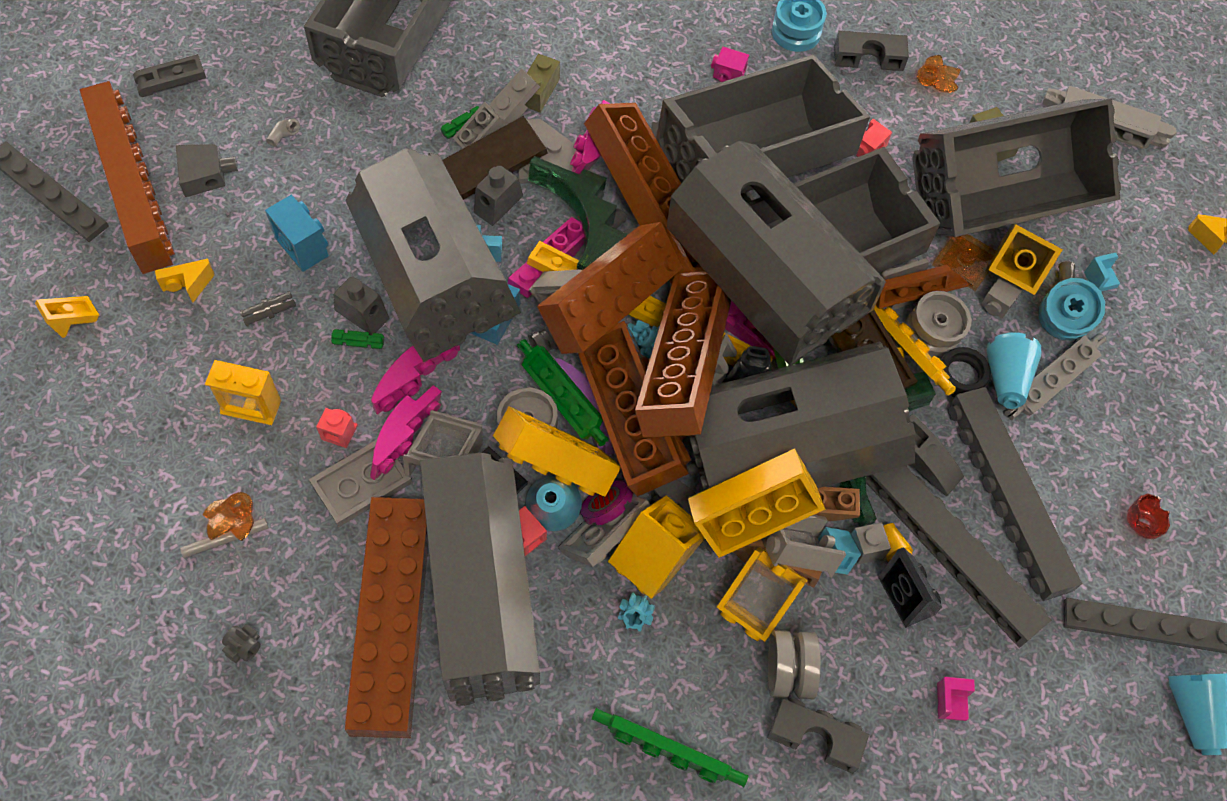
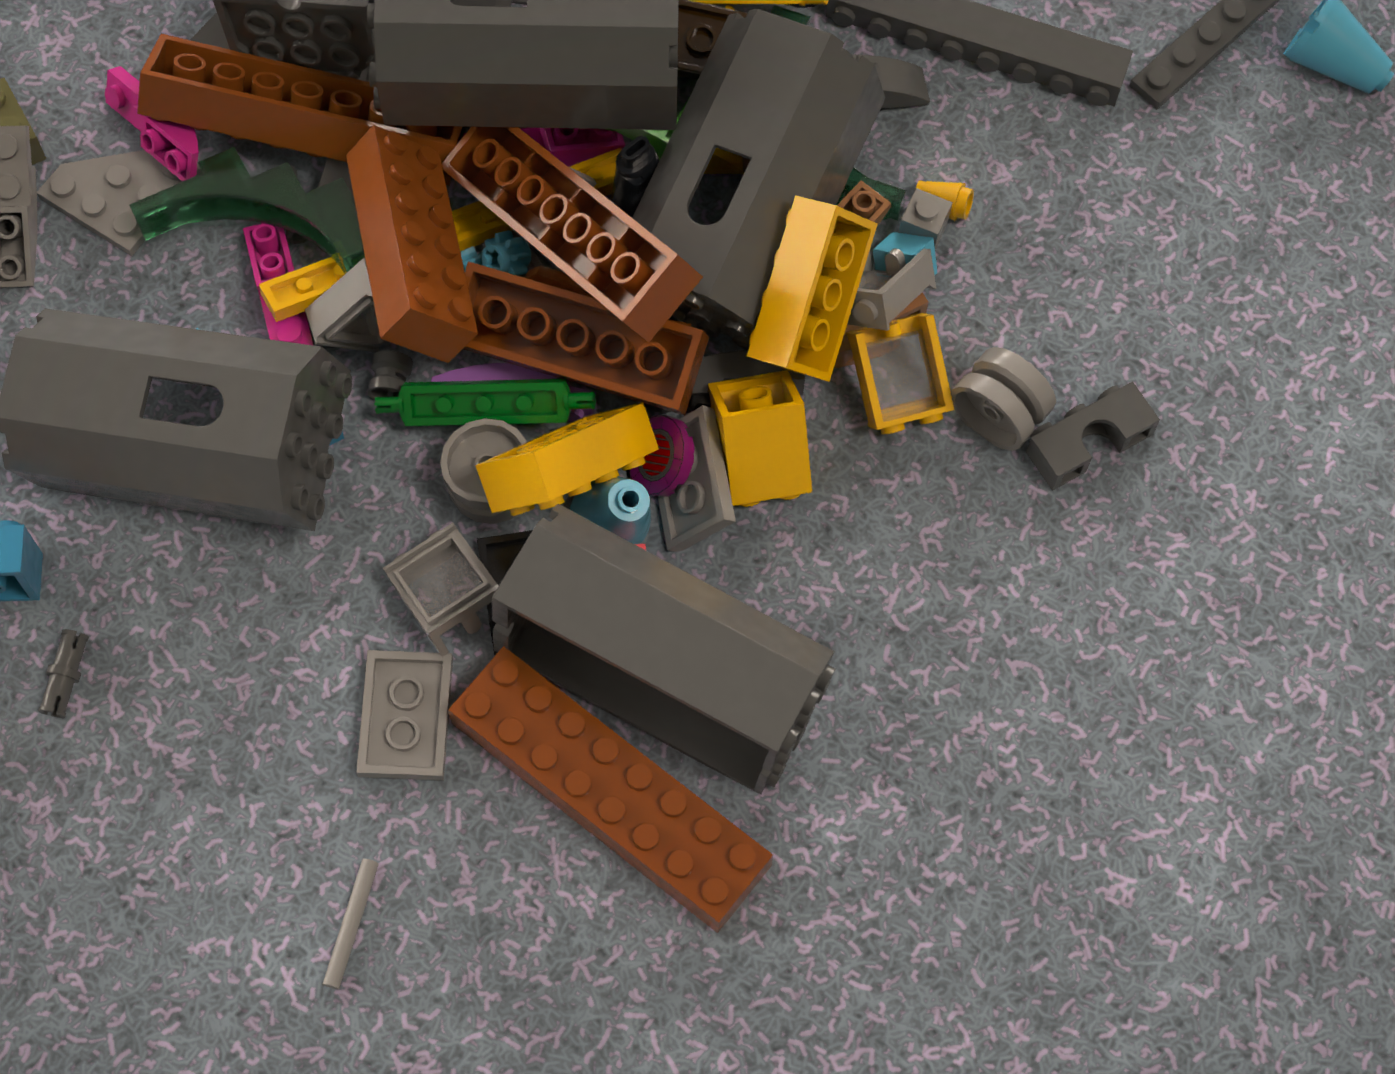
camera: 50 degrees left, 5 degrees up
(227, 518) = (330, 903): clear orange plate -> none
(241, 643) = (512, 982): dark grey gear -> none
(244, 392) = (179, 770): yellow window -> none
(336, 423) = (308, 690): coral brick -> none
(357, 301) = (161, 557): dark grey torso -> none
(357, 339) = (200, 594): green axle -> none
(399, 428) = (384, 624): dark pink slope -> none
(404, 377) = (307, 576): dark pink slope -> none
(496, 195) = (134, 282): dark grey torso -> none
(506, 147) = (74, 248): dark brown tile -> none
(639, 604) = (814, 518): medium azure gear -> none
(680, 755) = (979, 605): green plate -> none
(909, 588) = (1010, 221): black slope -> none
(953, 698) = (1149, 274): dark pink panel -> none
(960, 553) = (1007, 141): dark grey brick -> none

